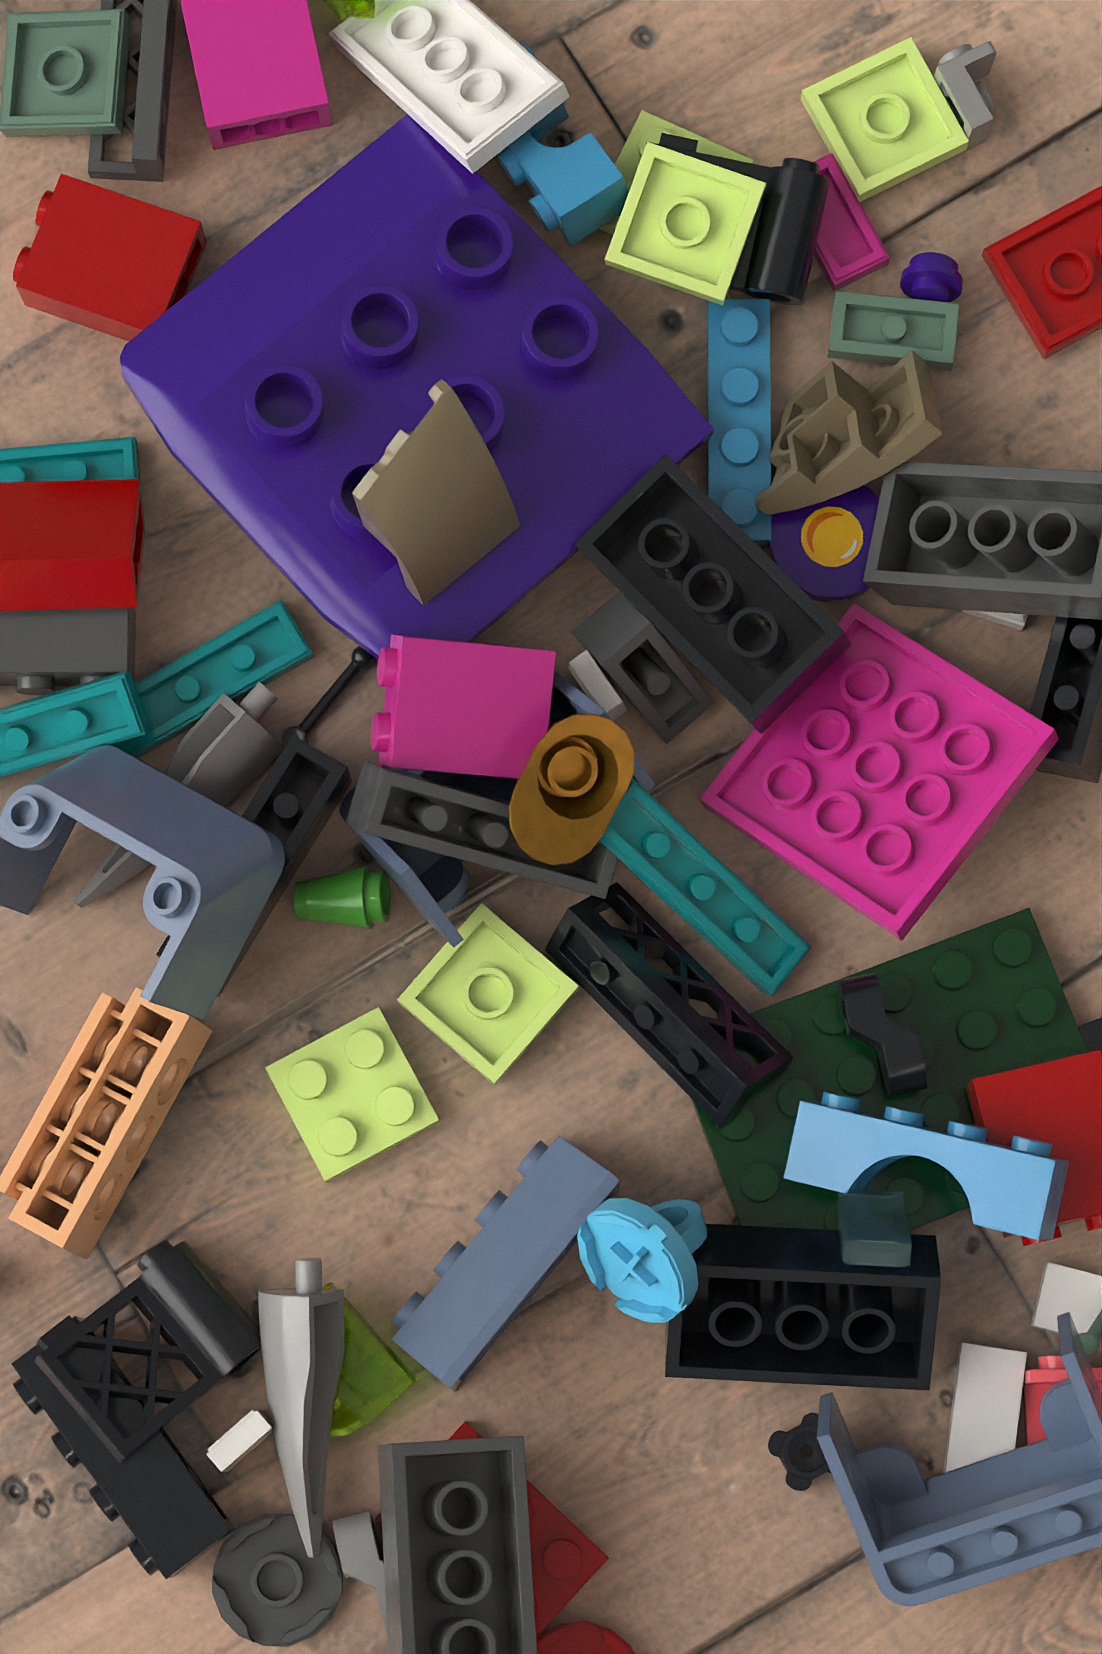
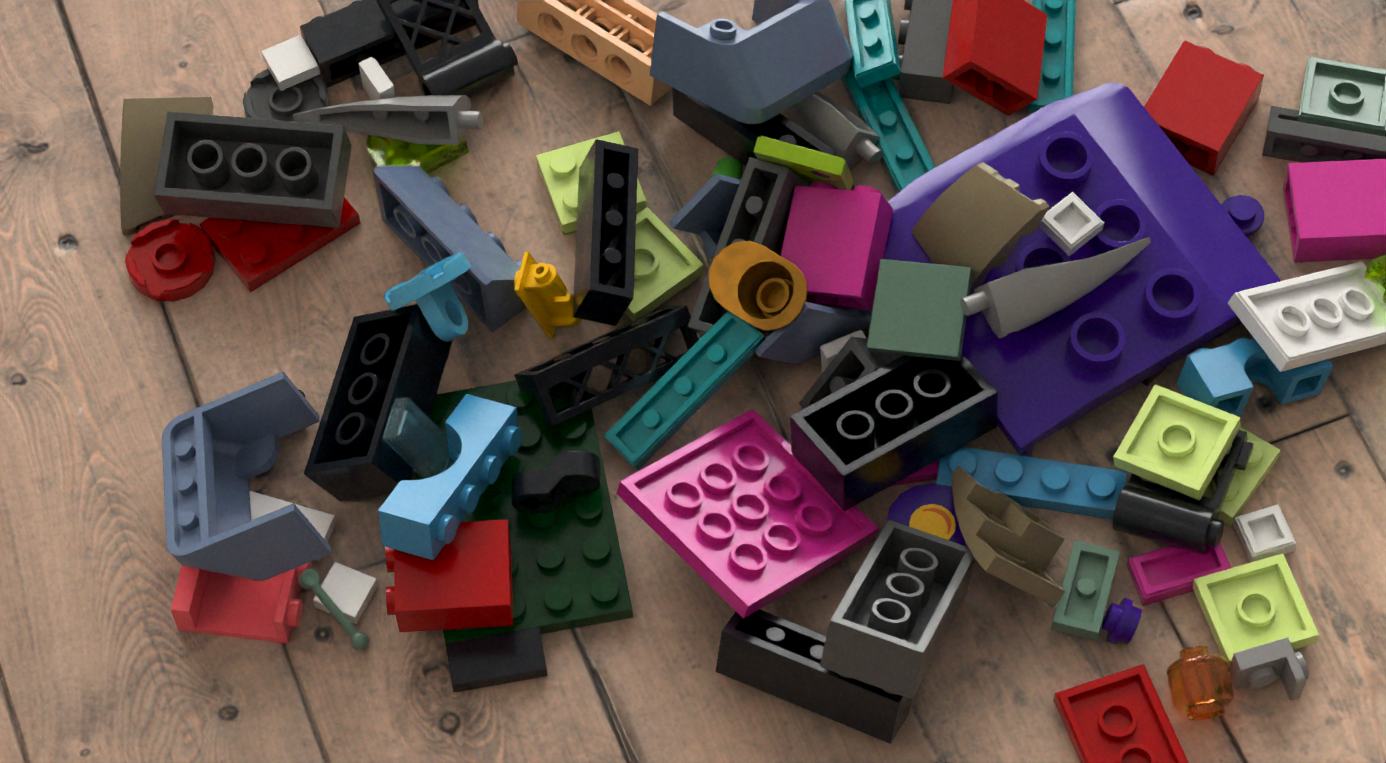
camera: 100 degrees right, 20 degrees down
(220, 1583) = (290, 62): none -> white tile
(275, 191) = (1245, 212): none -> dark purple plate
(361, 756) = (805, 162): none -> lime tile
(399, 380) = (1071, 223): none -> white tile
(478, 1036) = (605, 233): none -> black brick
(517, 412) = (1041, 291): none -> light grey piece
(563, 567) = (919, 309): none -> sand green tile
(583, 1115) = (544, 295): none -> yellow hinge
(763, 122) = (1264, 533): none -> white tile
(1005, 174) = (1200, 683): none -> clear orange head

